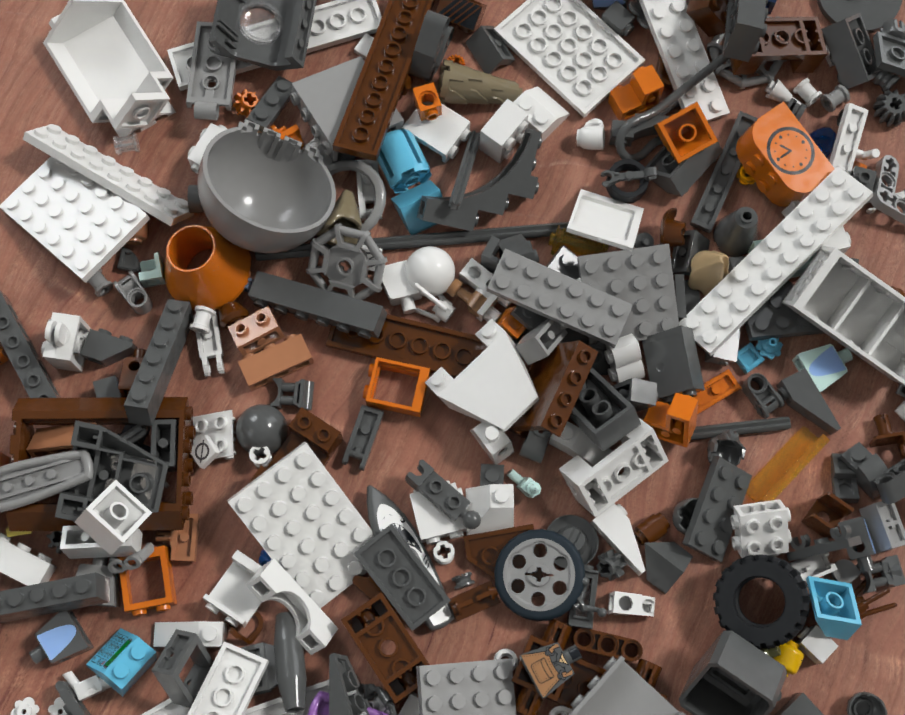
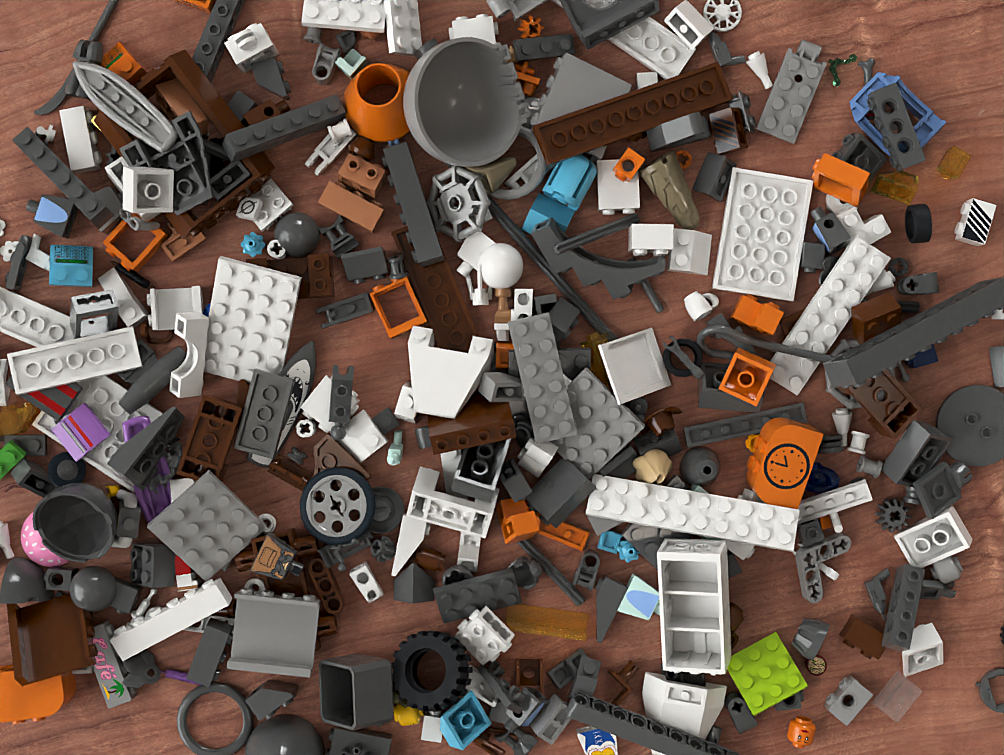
camera: 55 degrees right, 15 degrees up
(176, 610) = (133, 276): none -> black piece
(238, 475) = (252, 244): none -> medium azure plant
(337, 385) = (365, 265): none -> dark grey slope
(360, 360) = (396, 266): none -> dark grey bush
(552, 169) = (650, 293): none -> dark grey bar
(667, 488) = (469, 551): none -> white slope

